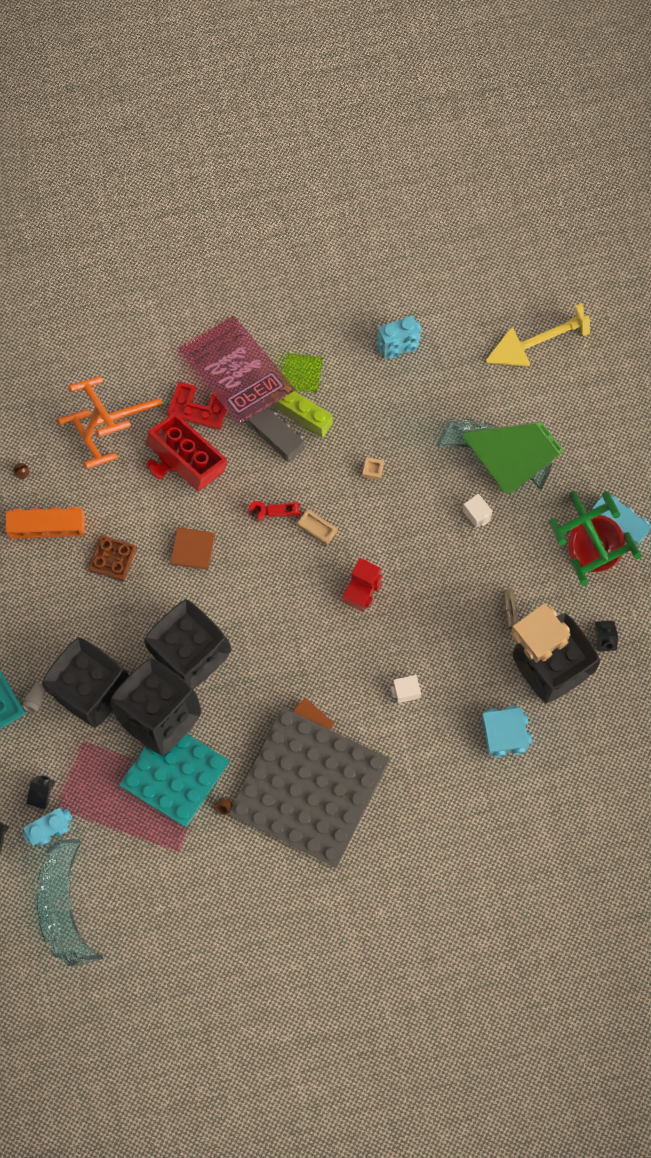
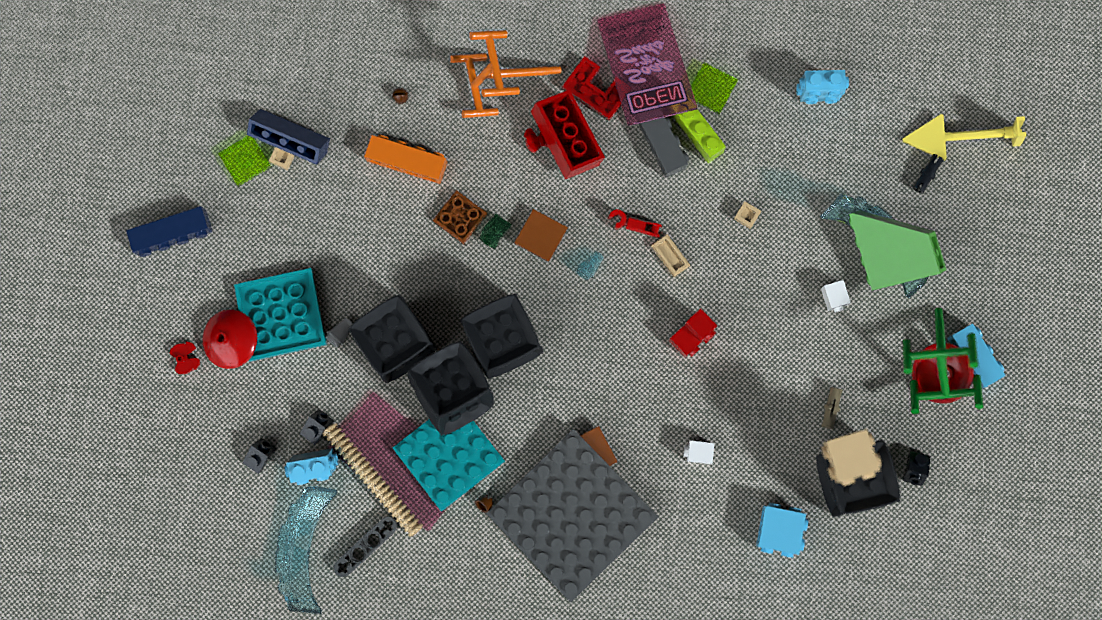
camera: 25 degrees right, 10 degrees up
(112, 821) = (372, 479): none -> tan piece
(128, 888) = (367, 548): none -> dark grey beam
(148, 559) = (494, 231): none -> clear green bracket
(246, 562) = (589, 266): none -> clear light blue cone
(518, 381) = (928, 173): none -> black pin

